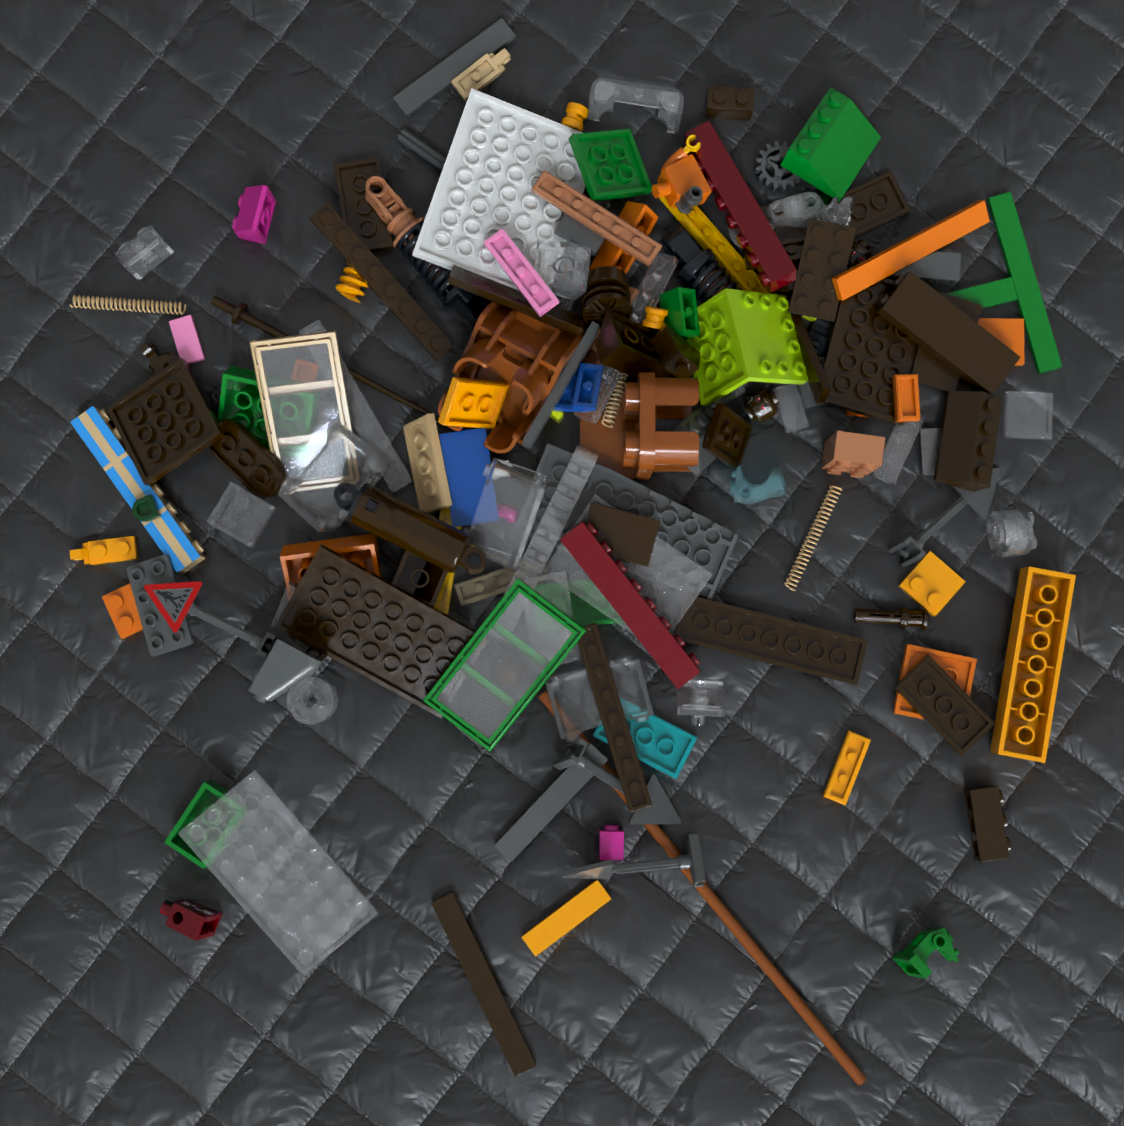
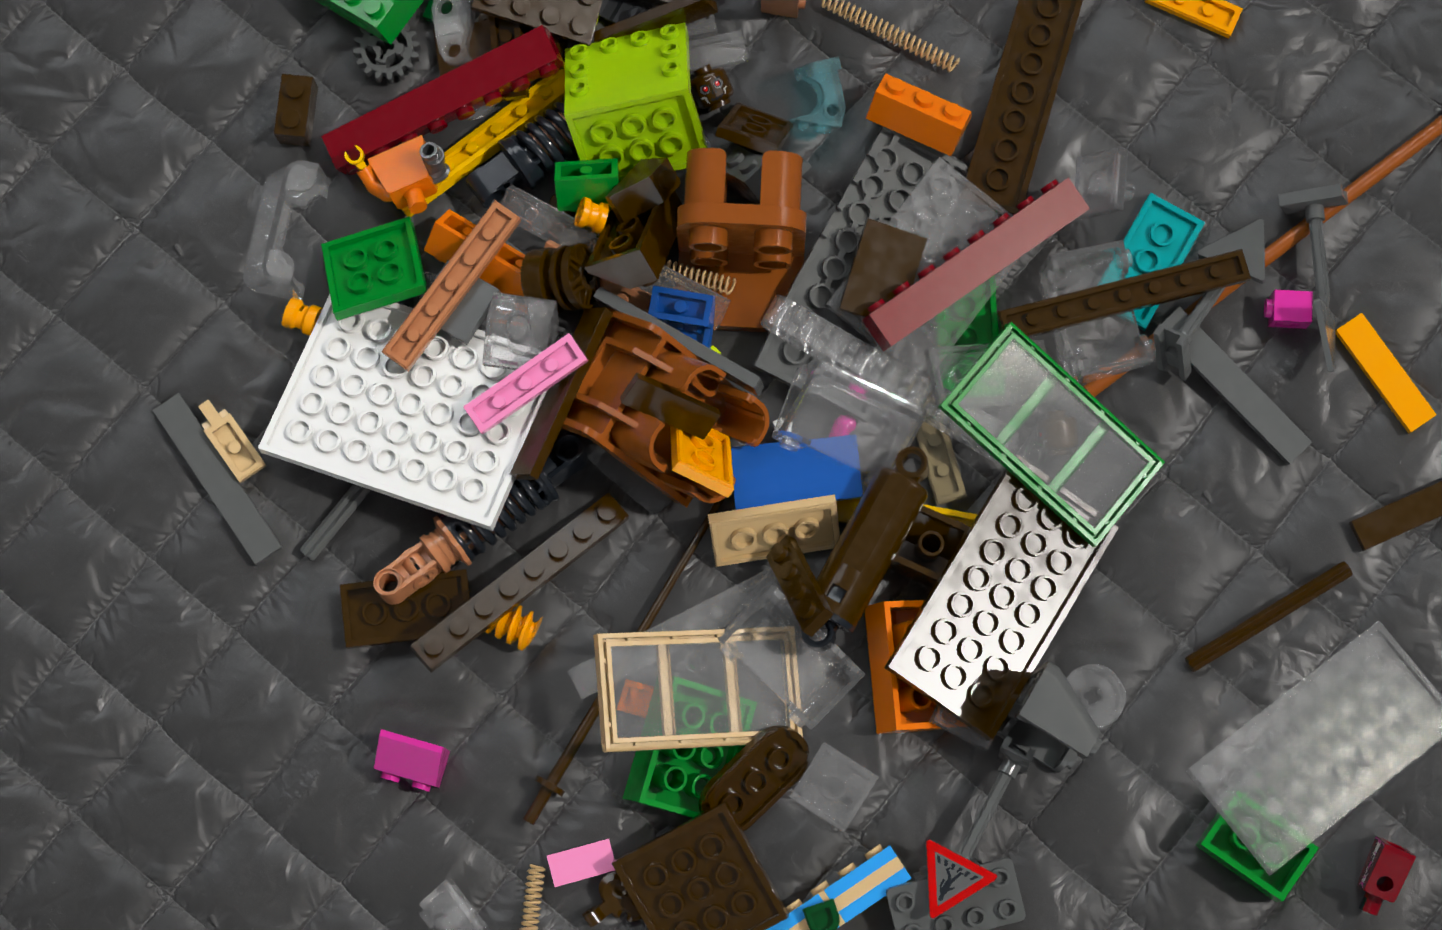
camera: 85 degrees left, 5 degrees down
(379, 480) = (799, 585): none -> dark brown plate
(379, 831) = (1268, 616): none -> dark brown axle
(507, 365) = (670, 406): none -> dark brown tile
(747, 559) = (918, 114): none -> orange slope

